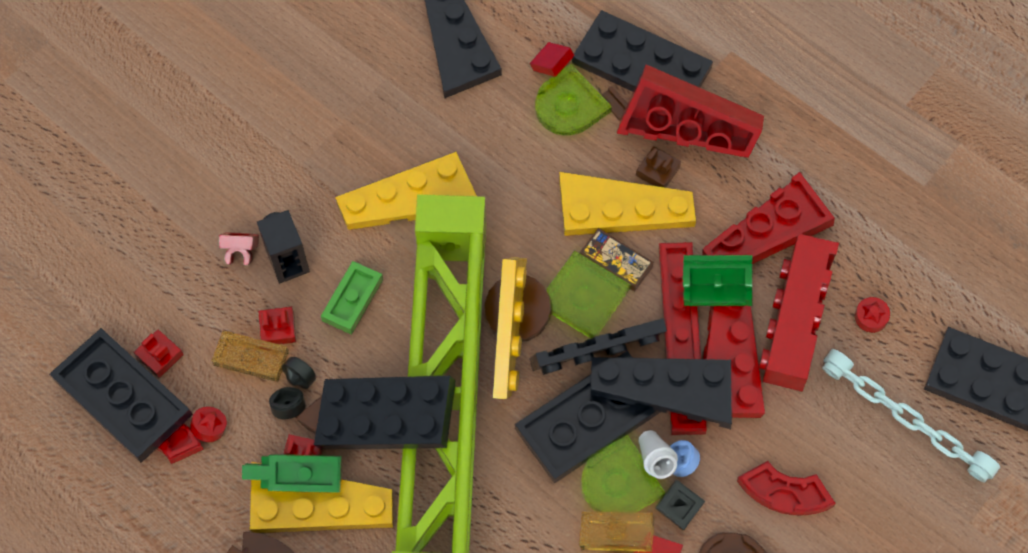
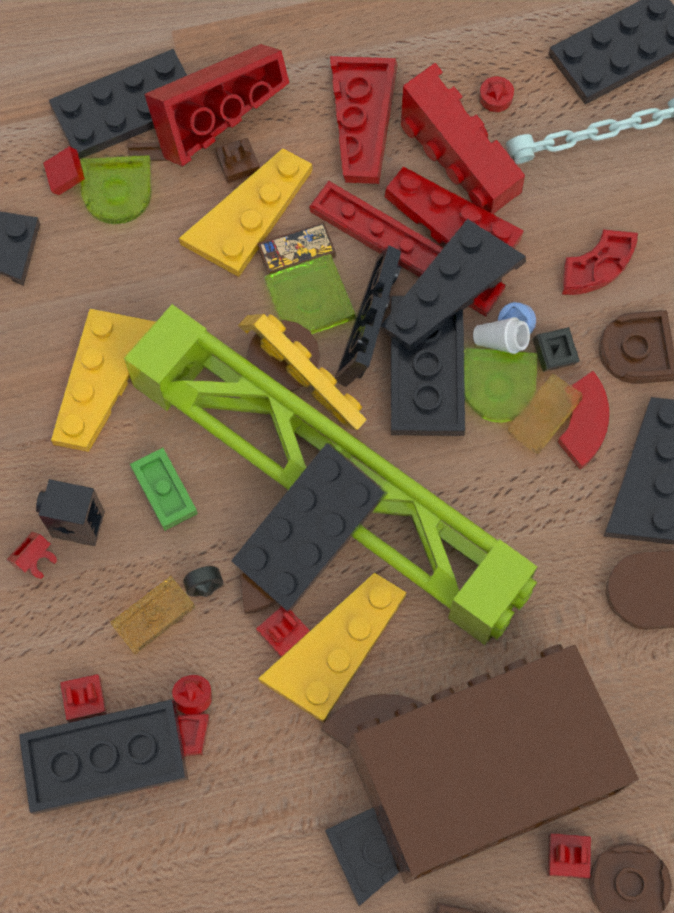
camera: 55 degrees left, 5 degrees up
(277, 325) = (138, 573): red tile -> none
(287, 403) = (224, 611): pearl dark grey tile -> none
(296, 472) = (304, 642): green hinge -> none
(718, 280) = (387, 180): green hinge -> none

